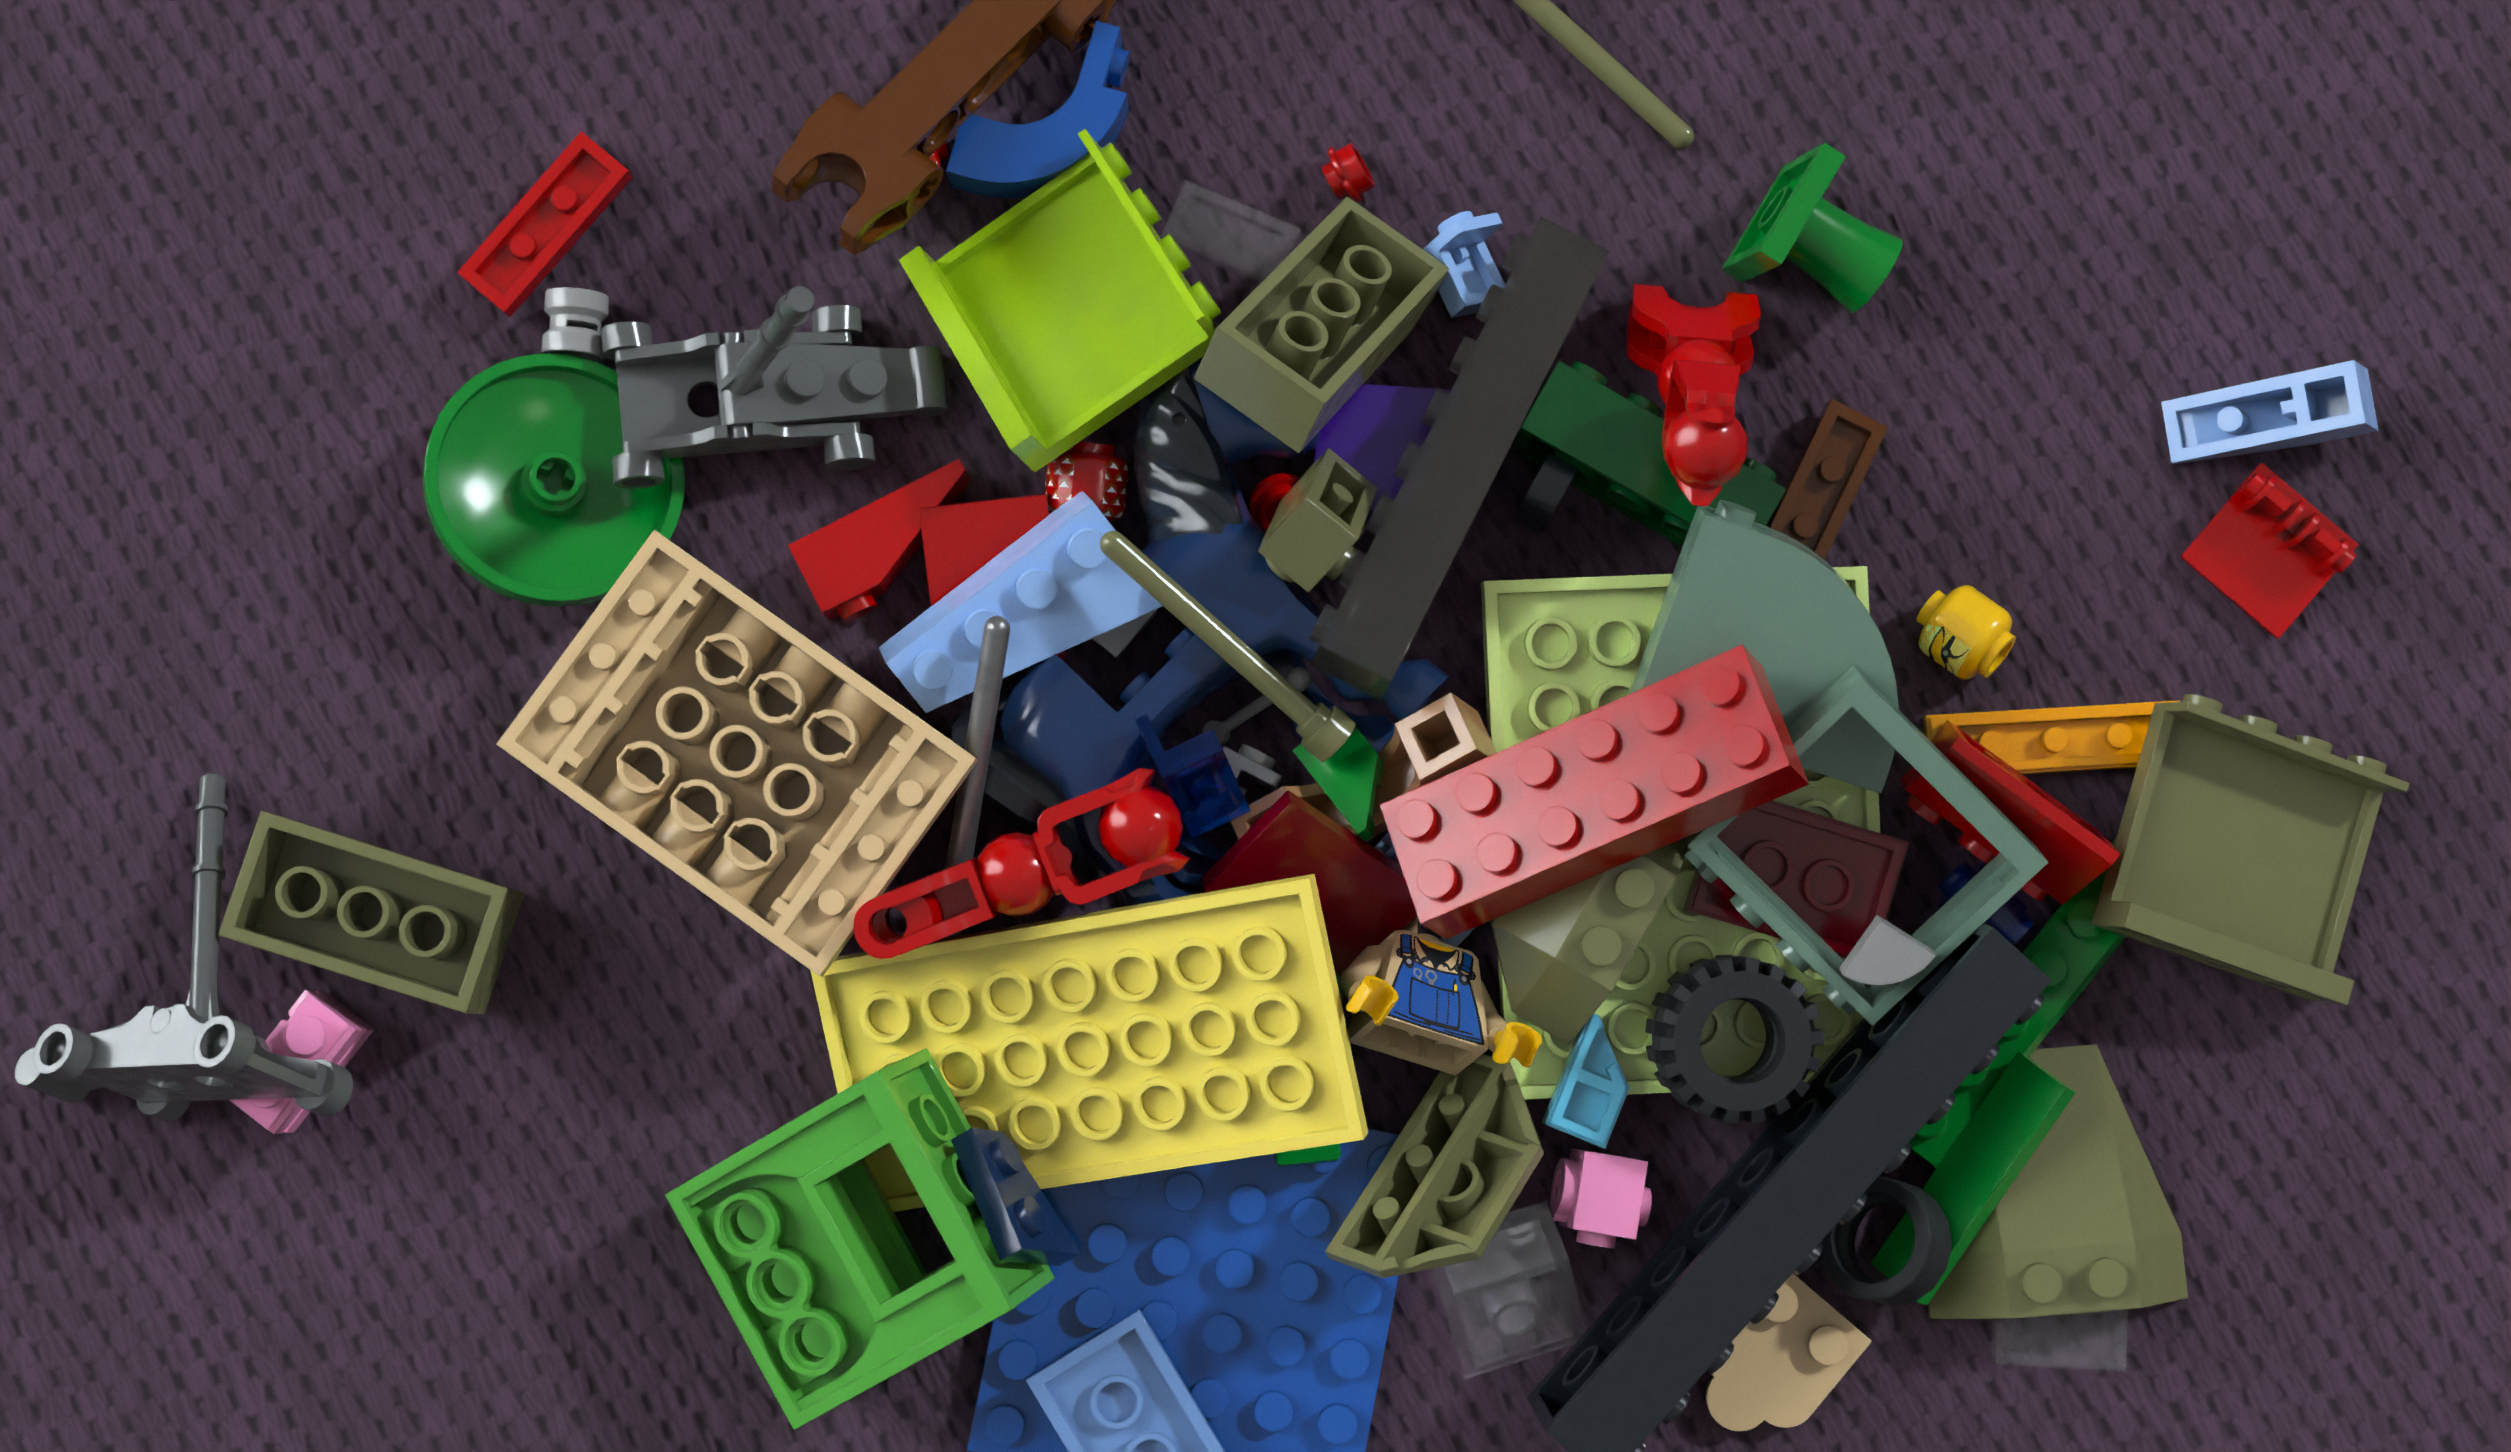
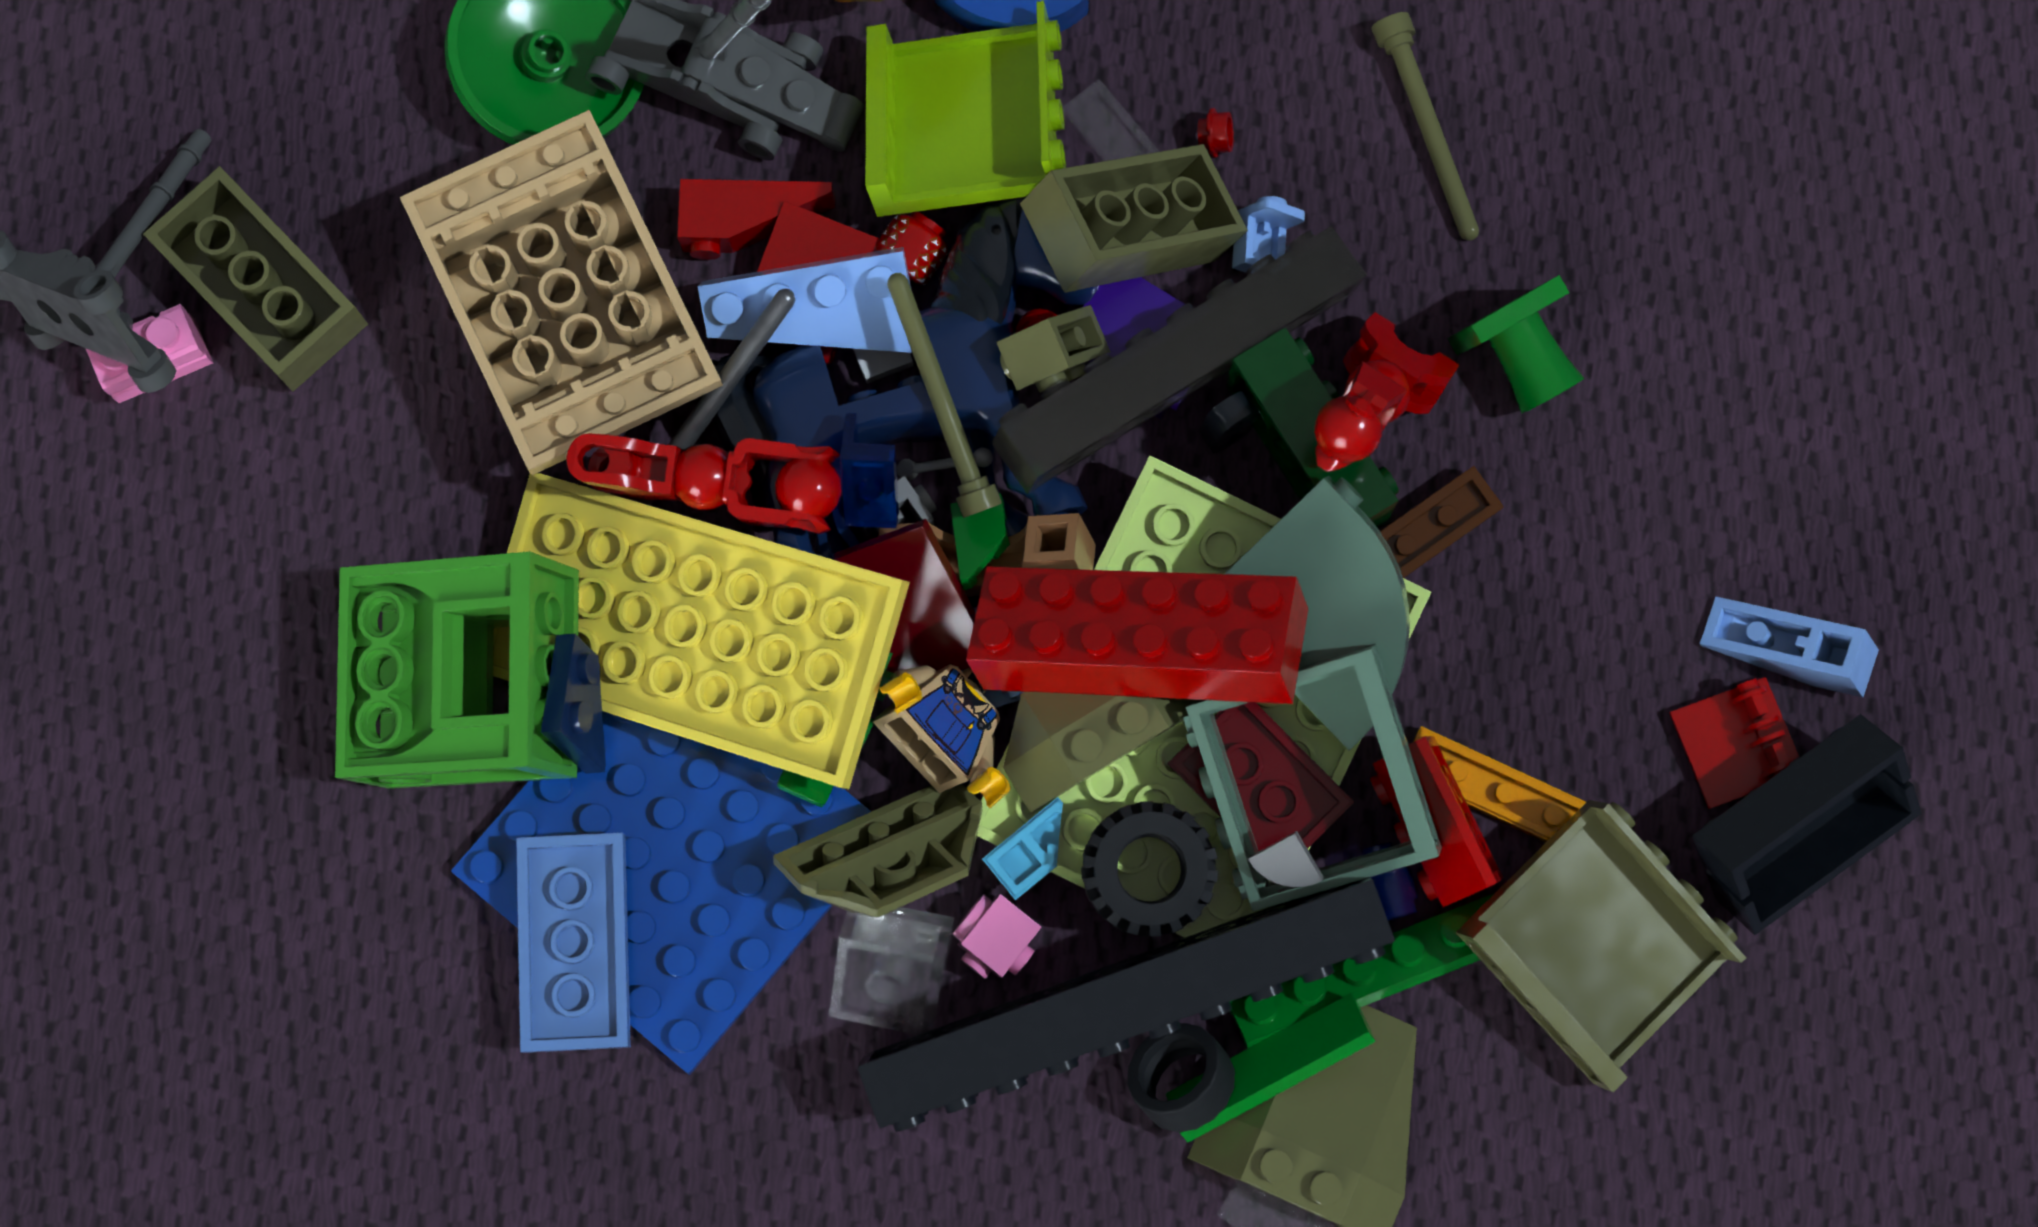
camera: 30 degrees right, 5 degrees down
(1784, 1362) = (1062, 1121): tan plate -> none
(1965, 632) = (1480, 680): yellow head -> none
(2399, 602) = (1808, 823): none -> black piece

